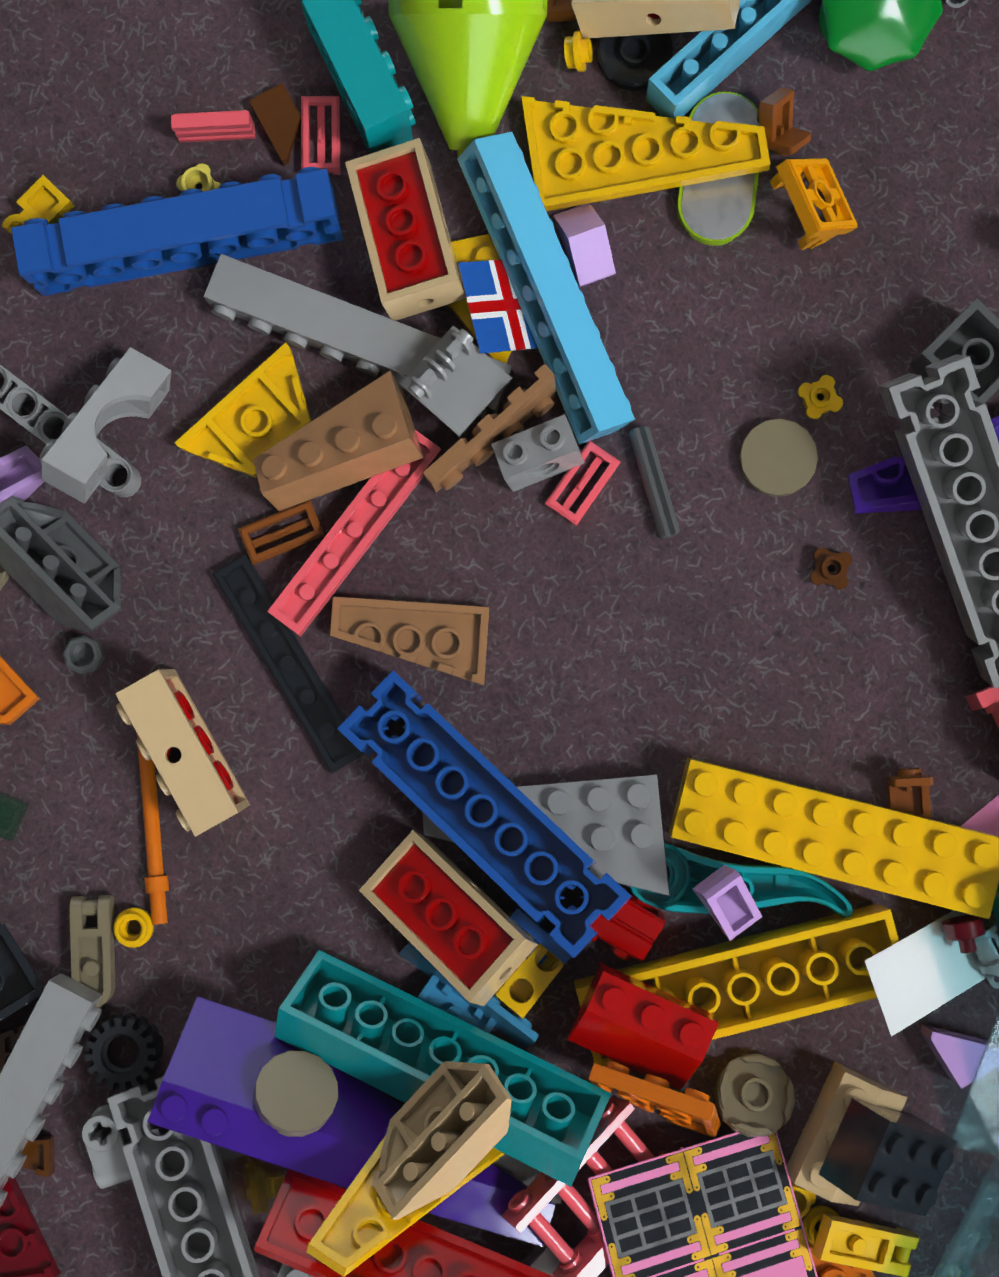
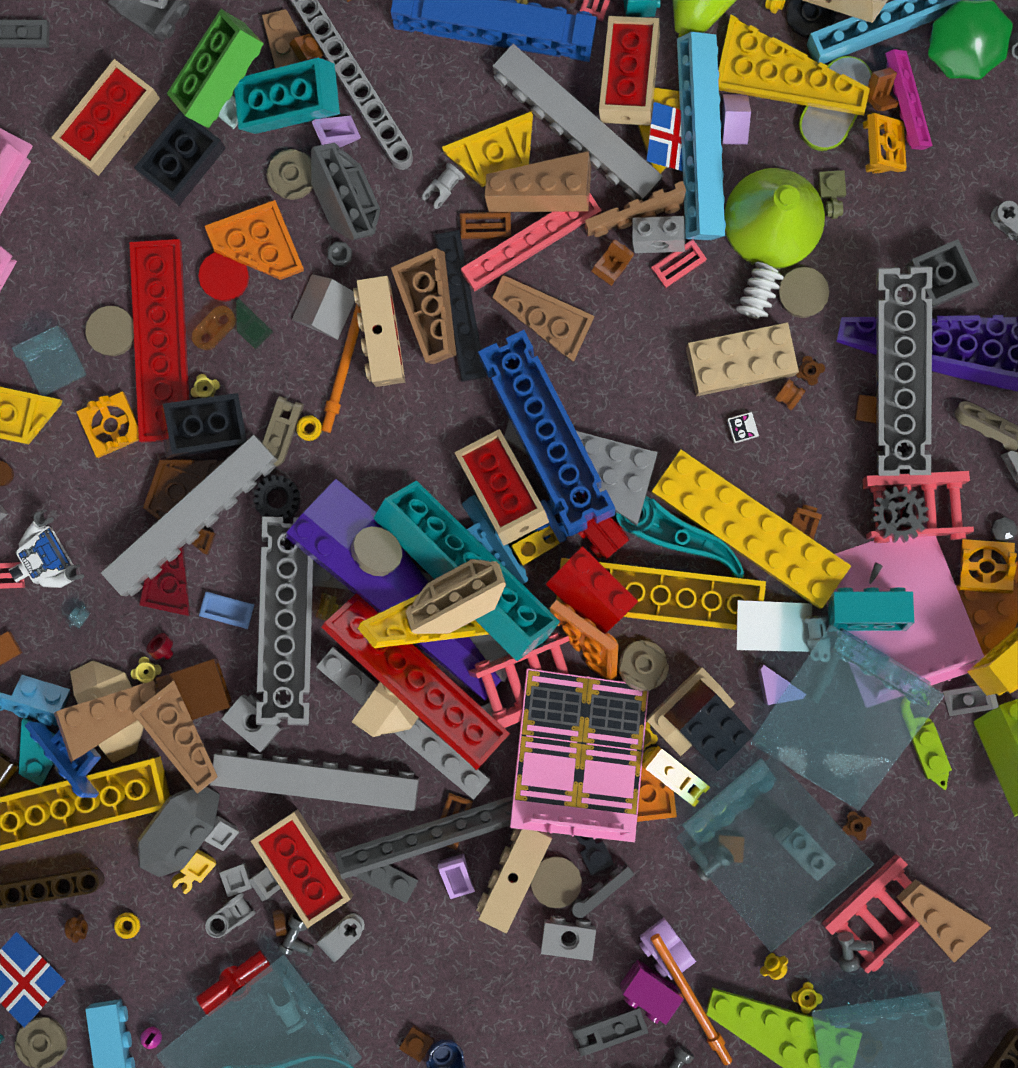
camera: 25 degrees right, 0 degrees up
(89, 741) = (324, 306): none -> light grey slope
(105, 1148) = (248, 556): light grey piece -> none
(110, 1245) = (226, 610): none -> medium blue tile
(131, 388) = (429, 105): light grey arch -> none
(197, 497) = (443, 185): none -> light grey piece
(238, 682) = (427, 301): none -> medium nougat wedge
(456, 380) = (626, 172): light grey hinge -> none
(487, 518) = (613, 262): none -> dark orange bracket
(654, 482) = (722, 279): dark grey axle -> none
(695, 366) = (774, 218): none -> lime cone
(715, 480) = (759, 291): none -> white piece
(728, 590) = (742, 359): none -> tan brick
(728, 901) = (671, 539): lavender slope -> none
(760, 289) = (832, 186): none -> olive plate
(765, 687) = (742, 427): none -> tile
(815, 407) = (838, 270): yellow plate -> none
(816, 614) = (790, 394): none -> dark orange wheel
(831, 135) = (909, 101): none -> dark pink plate
(933, 593) = (866, 409): none -> dark orange tile
(964, 930) = (805, 613): dark red tile -> none

